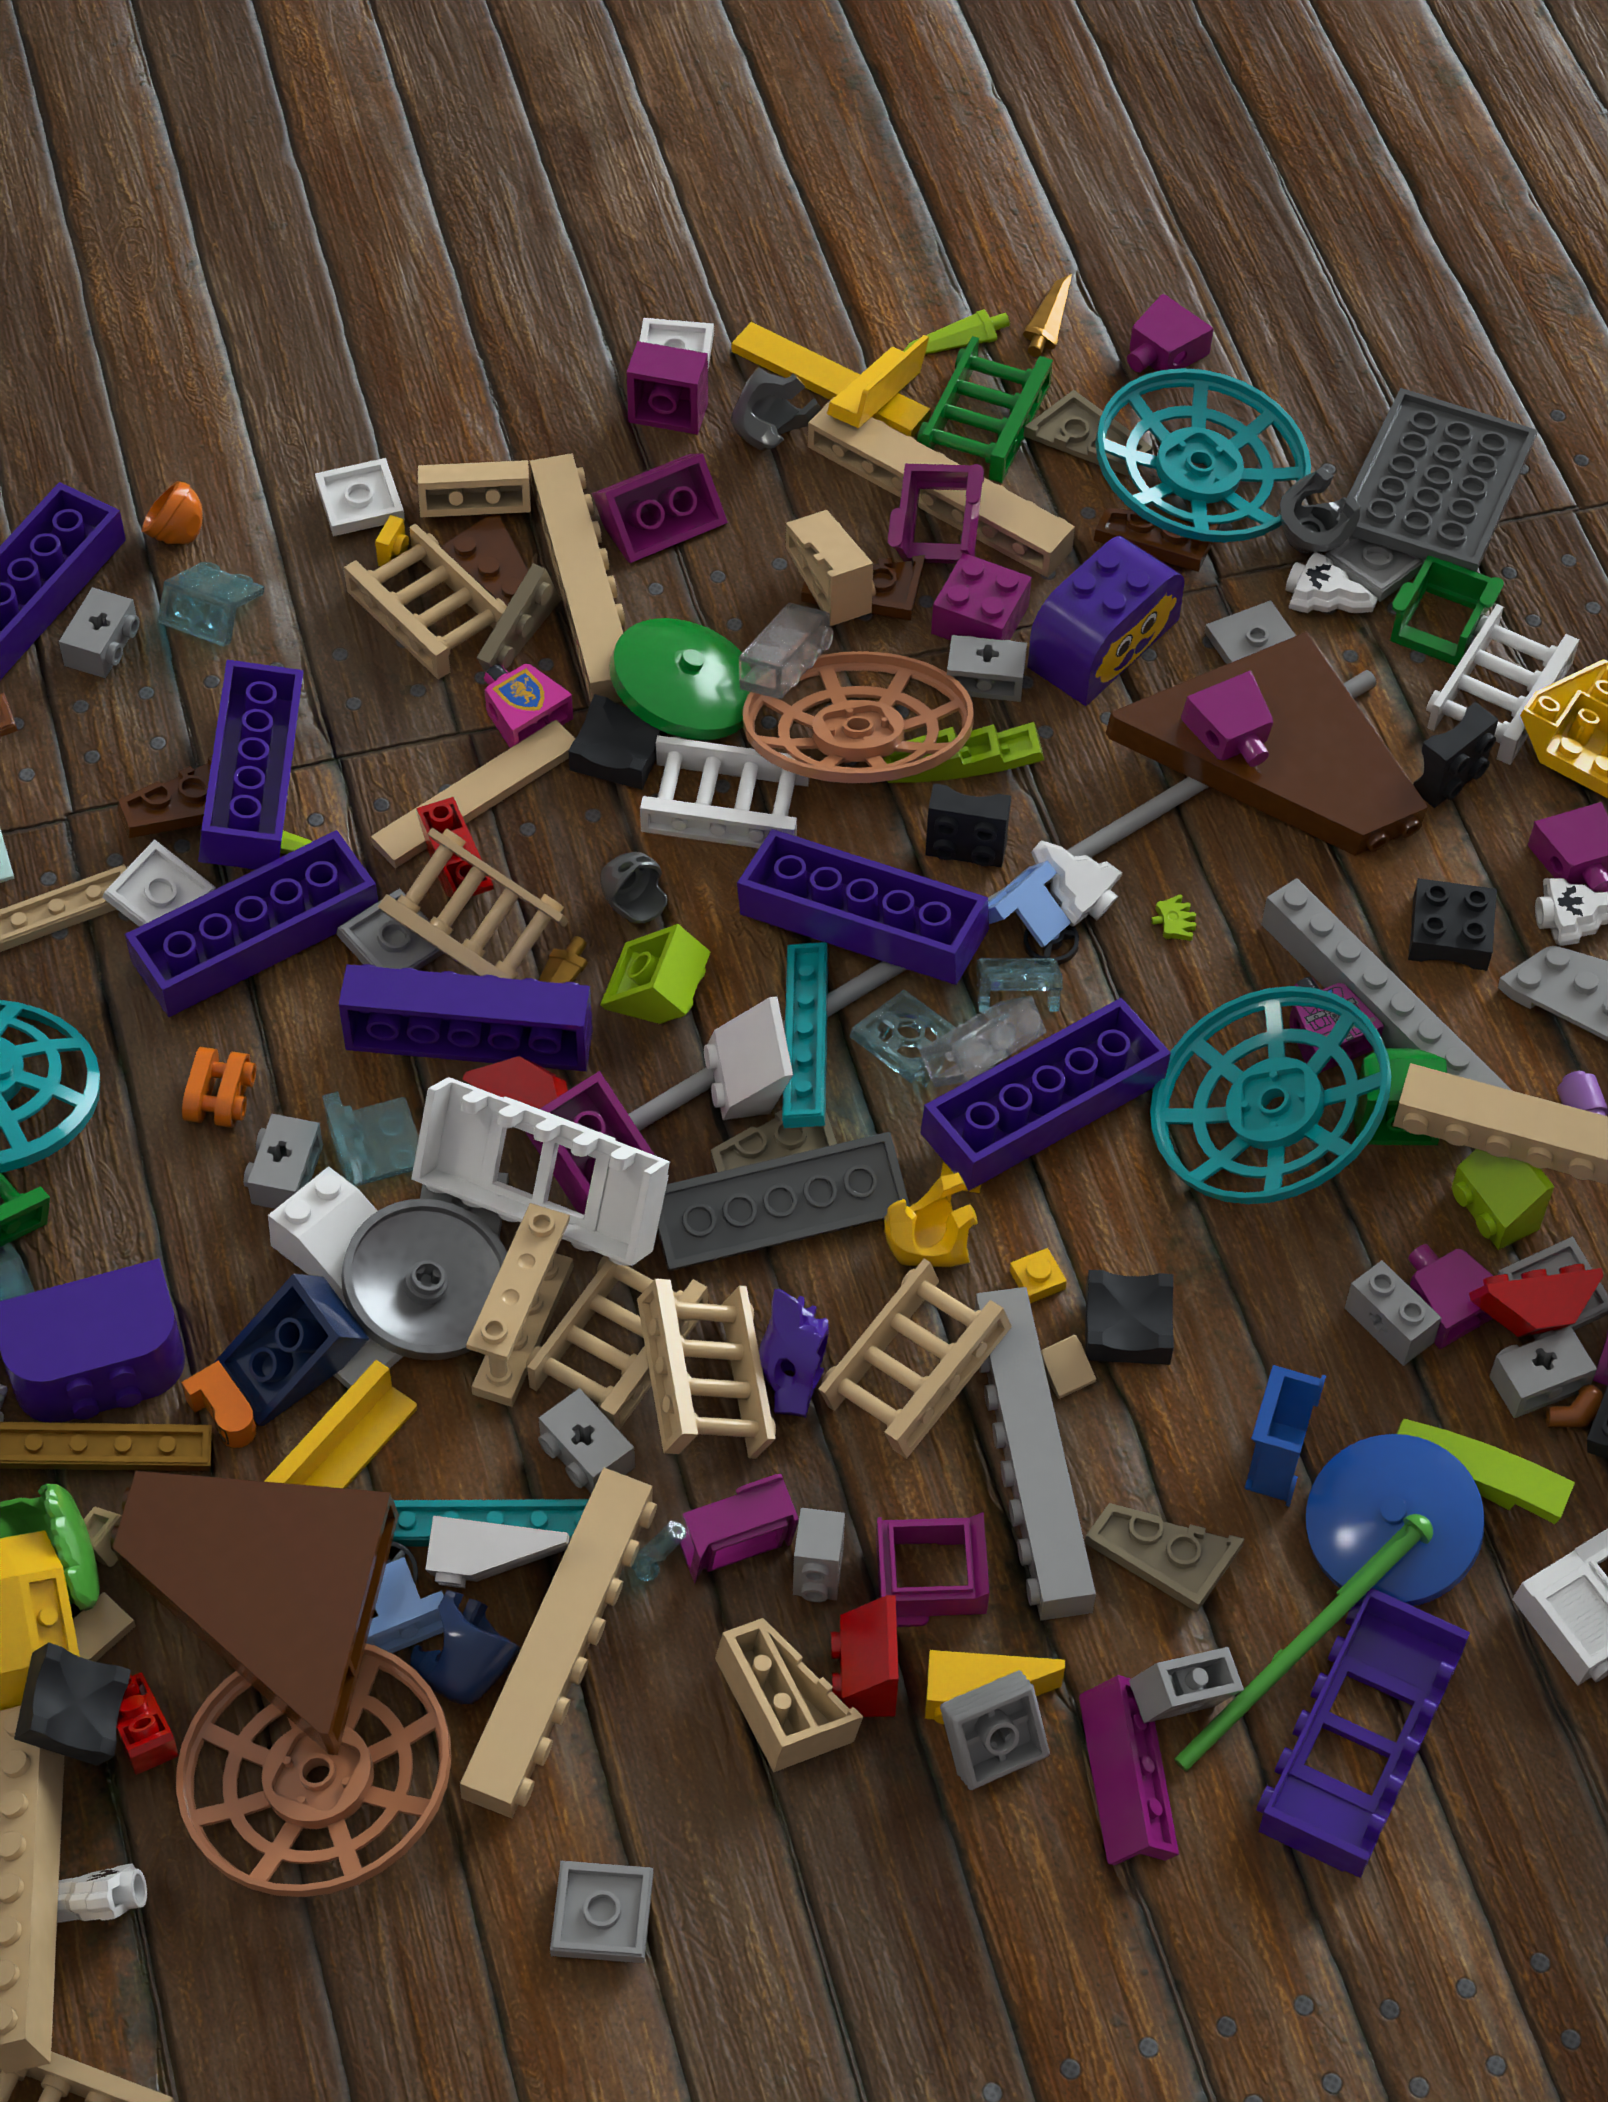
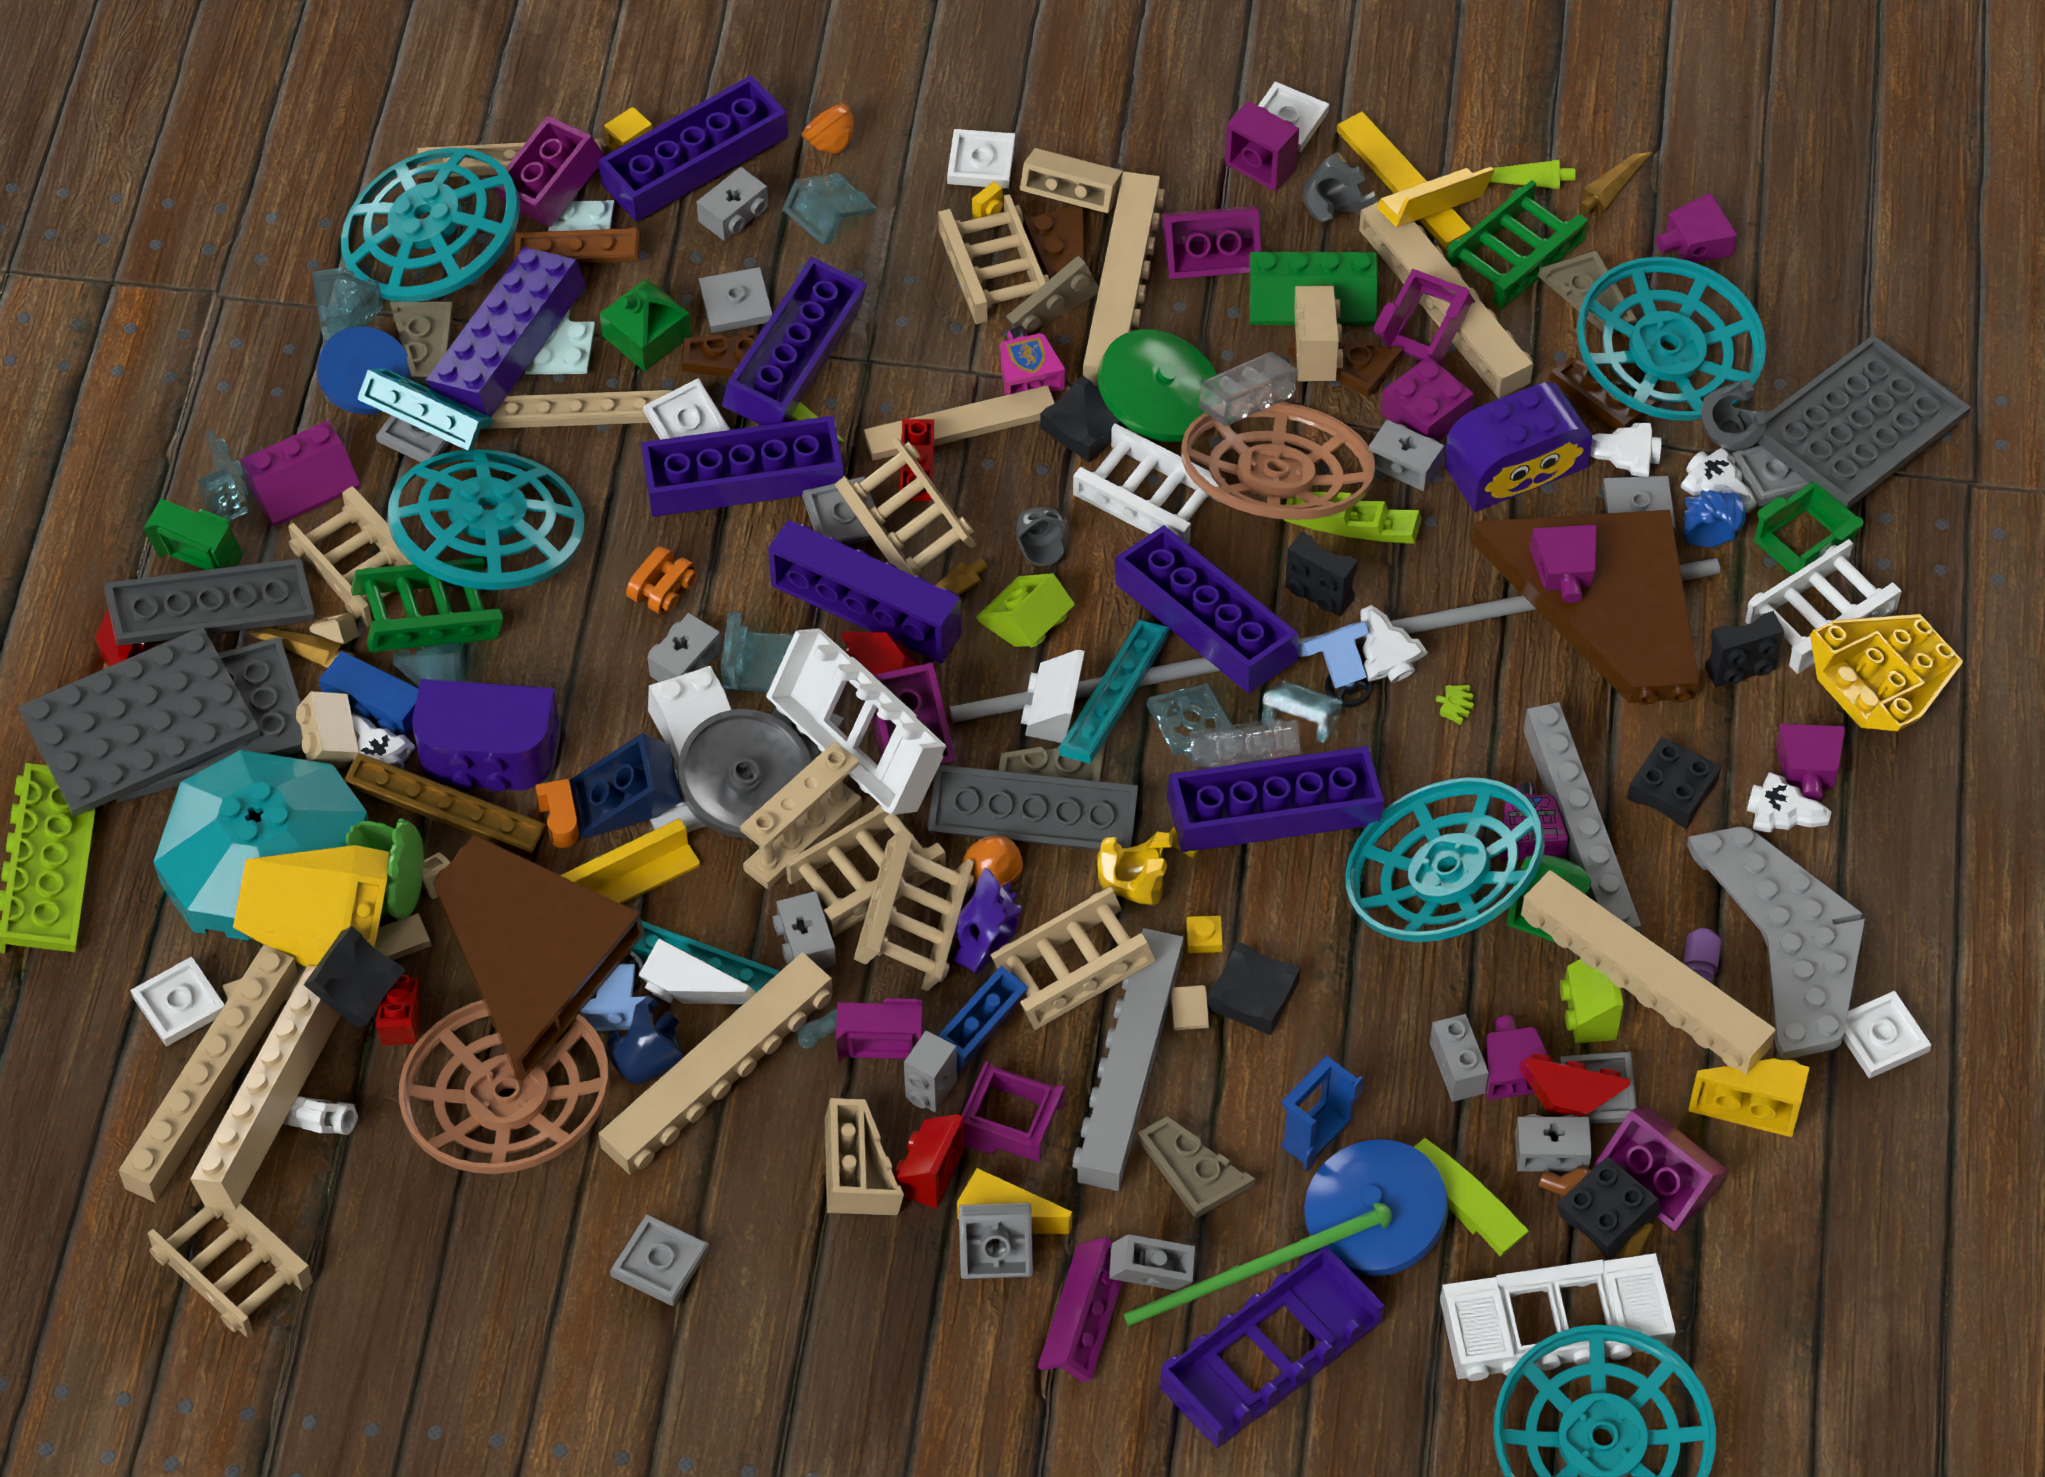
camera: 25 degrees right, 0 degrees up
(60, 799) = (645, 324): none -> green piece
(151, 739) = (735, 300): none -> light grey plate
(754, 523) = (1277, 273): none -> green slope
(762, 1271) = (999, 856): none -> orange hat
(846, 1460) = (984, 1015): none -> blue brick
(1219, 584) = (1629, 448): none -> white rock
(1346, 627) = (1713, 518): none -> blue hair

